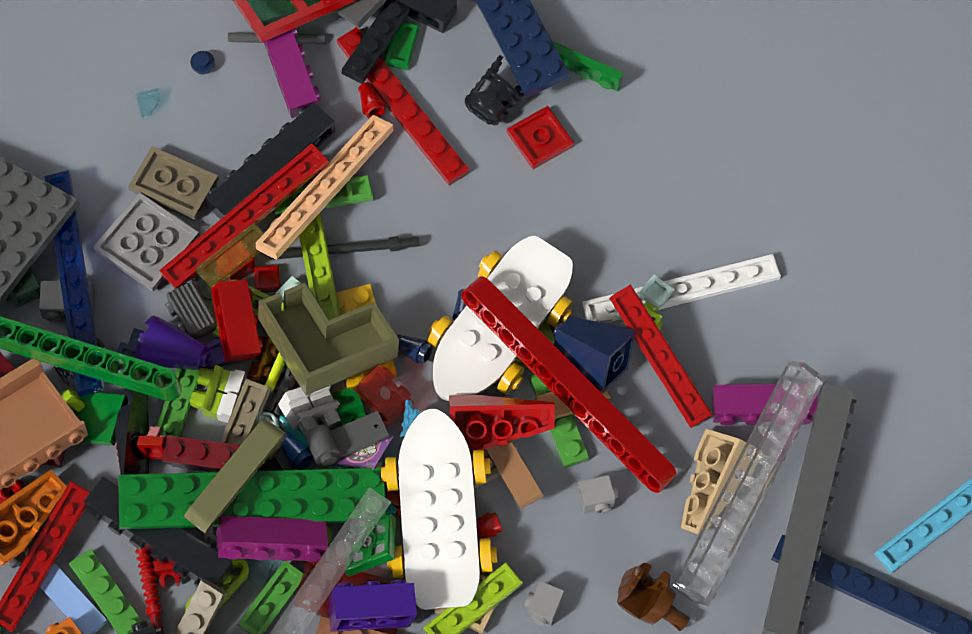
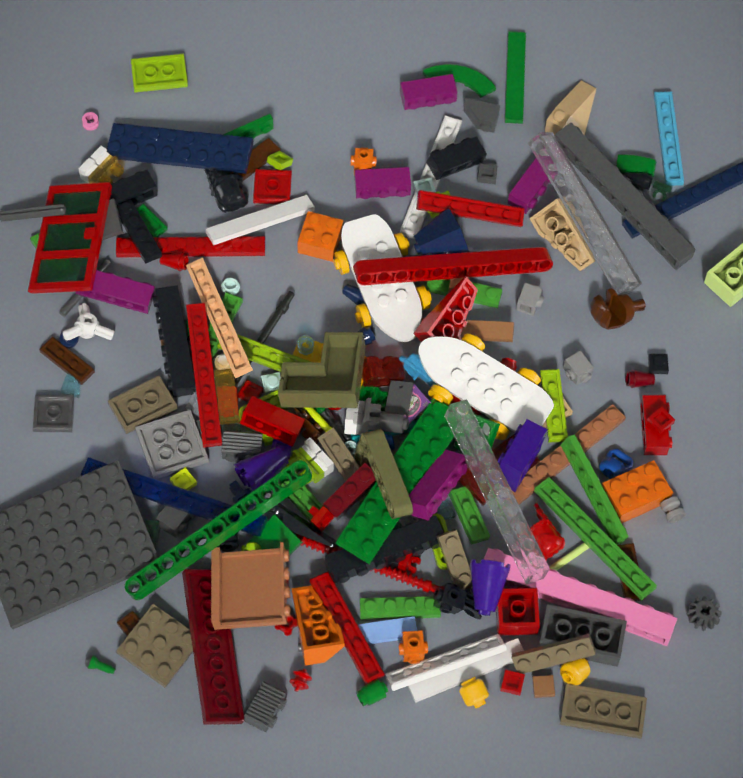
camera: 55 degrees left, 5 degrees down
(105, 106) = (53, 413): none -> flat silver tile
(110, 281) = (183, 480): none -> neon yellow plate
(176, 78) = (67, 360): none -> reddish brown tile
(226, 68) = (87, 326): none -> white bush
(359, 302) = (305, 351): none -> clear light blue bush
(381, 176) = (230, 286): none -> light aqua plate
(484, 150) = (259, 219): none -> white tile
(508, 221) = (320, 236): none -> orange brick
(564, 99) = (259, 157): none -> reddish brown tile
(576, 122) = (279, 160): none -> lime plate
(629, 244) = (382, 182): none -> magenta brick
(640, 206) = (363, 159): none -> orange brick
(720, 299) = (456, 157): none -> black brick
(730, 347) = (487, 173): none -> dark grey plate
(788, 217) = (428, 92): none -> magenta brick
(805, 294) = (482, 114): none -> dark grey slope
(842, 236) = (465, 75): none -> green tile
(853, 519) = (640, 180): none -> black cone
(862, 552) = (662, 188): none -> clear green tile
(871, 503) = (636, 164): none -> green slope
(887, 297) = (515, 77): none -> green tile
(889, 388) = (573, 109): none -> tan wedge

